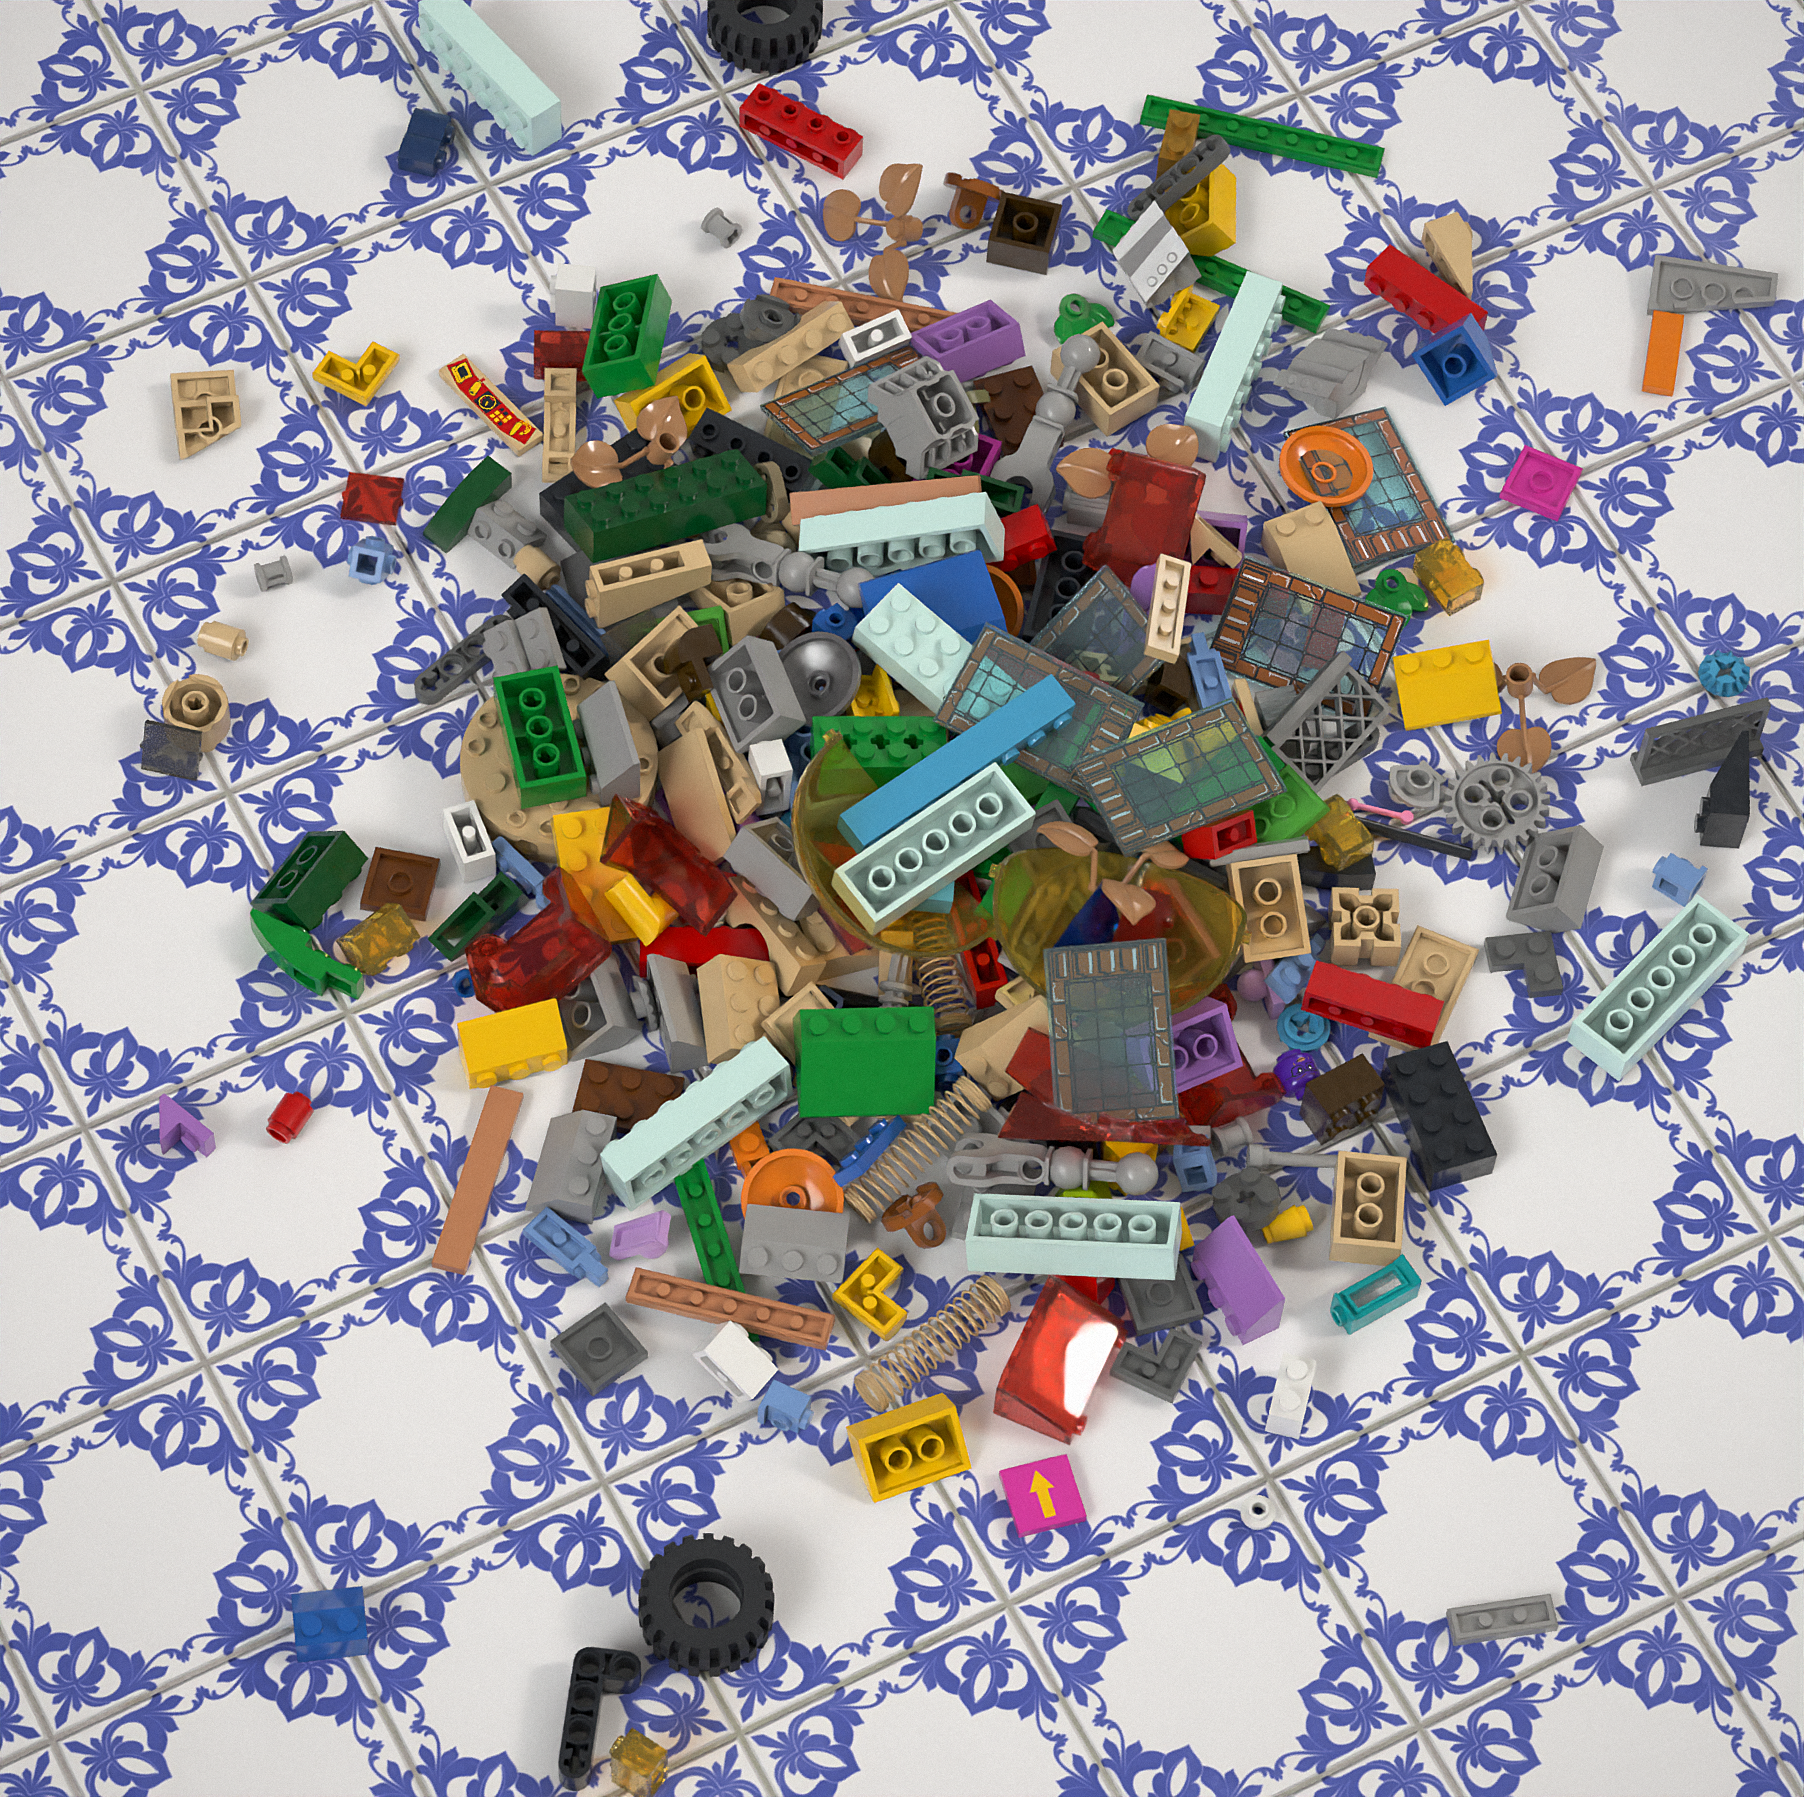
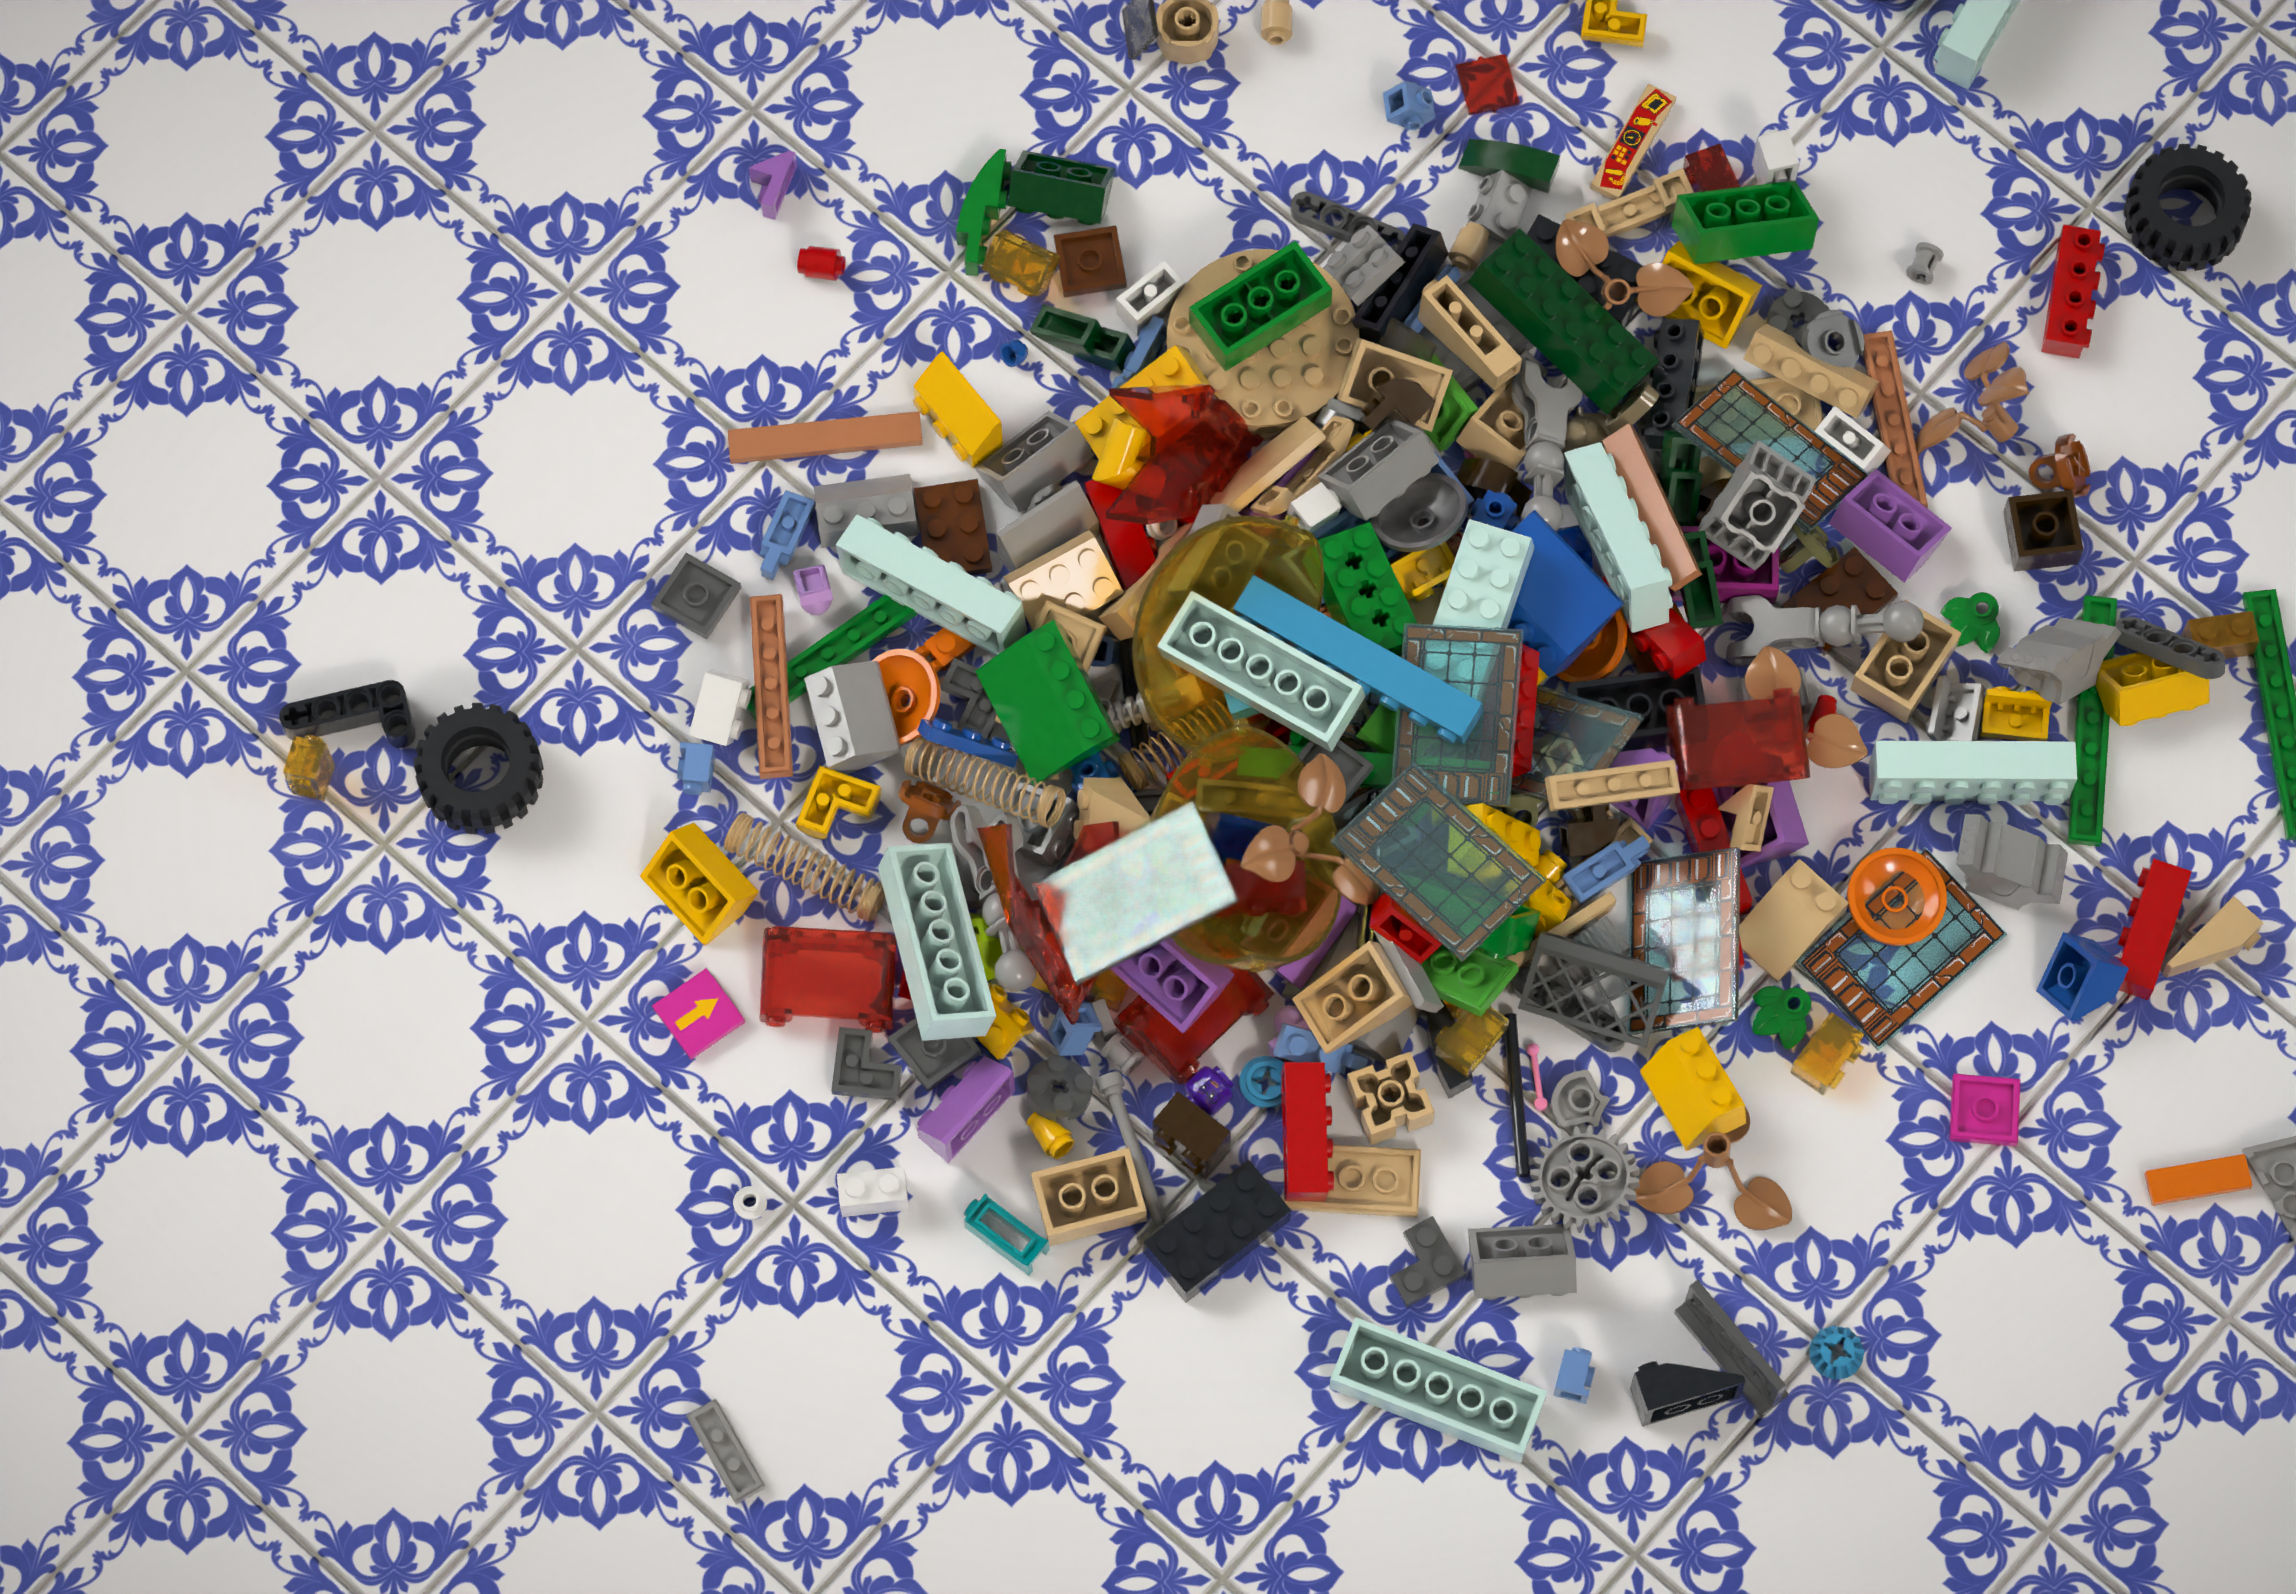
camera: 75 degrees right, 10 degrees up
(273, 573) = (1364, 33): light grey bush -> none
(330, 1624) = (361, 479): blue slope -> none
(545, 955) = (1042, 397): clear red windscreen -> none
(607, 745) = (1276, 368): light grey slope -> none

